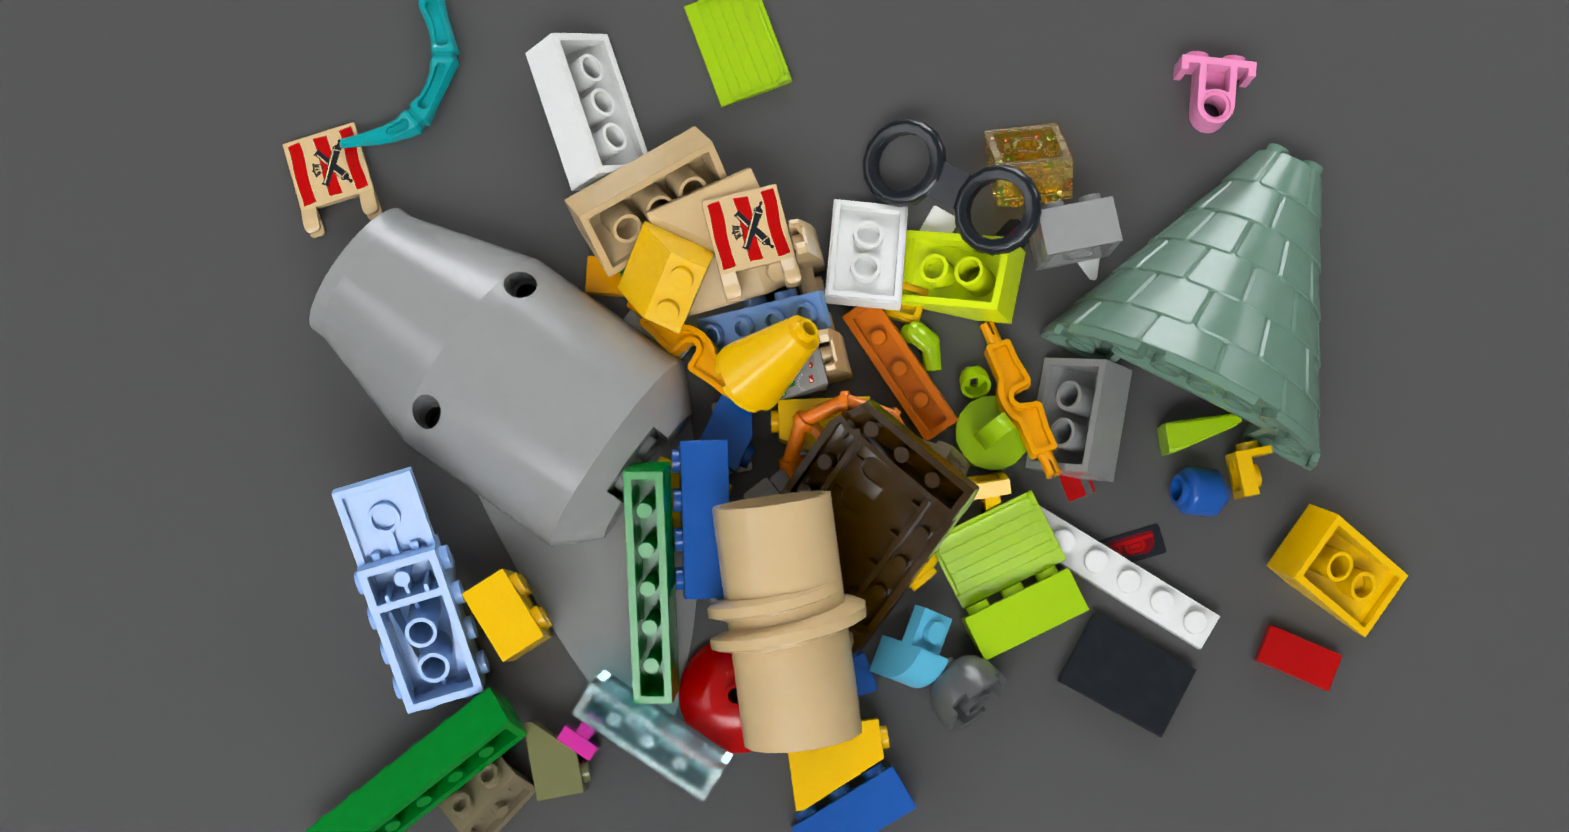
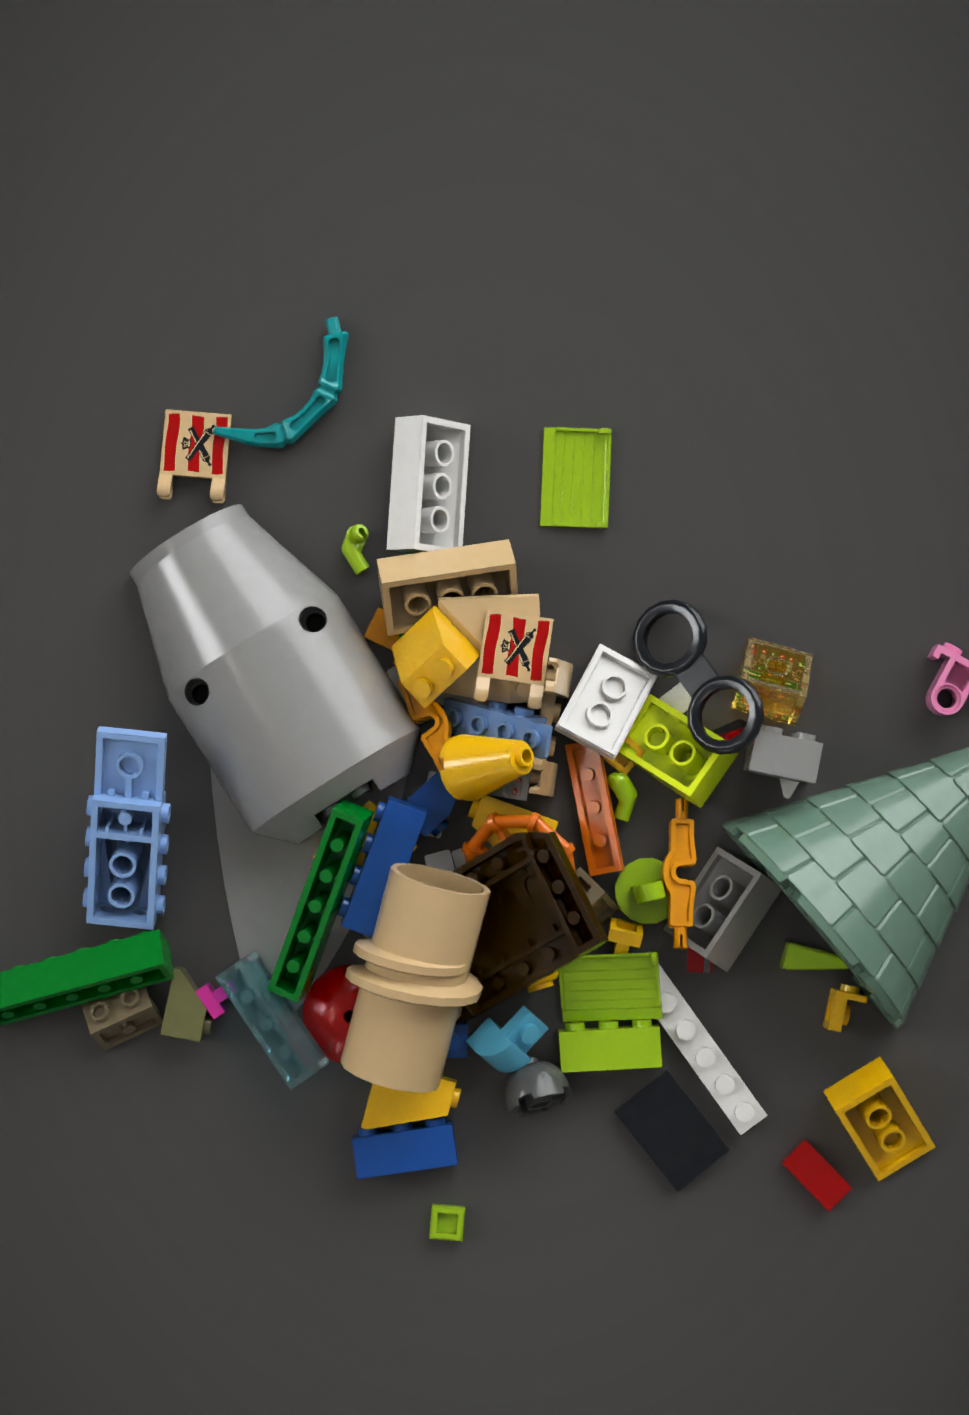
camera: 30 degrees right, 5 degrees up
(508, 614) = (197, 877): yellow brick -> none
(536, 204) = (353, 546): none -> lime arm
(982, 384) = (648, 849): lime hinge -> none
(1137, 543) = (726, 1029): sticker -> none
(1199, 491) = (794, 1009): blue head -> none

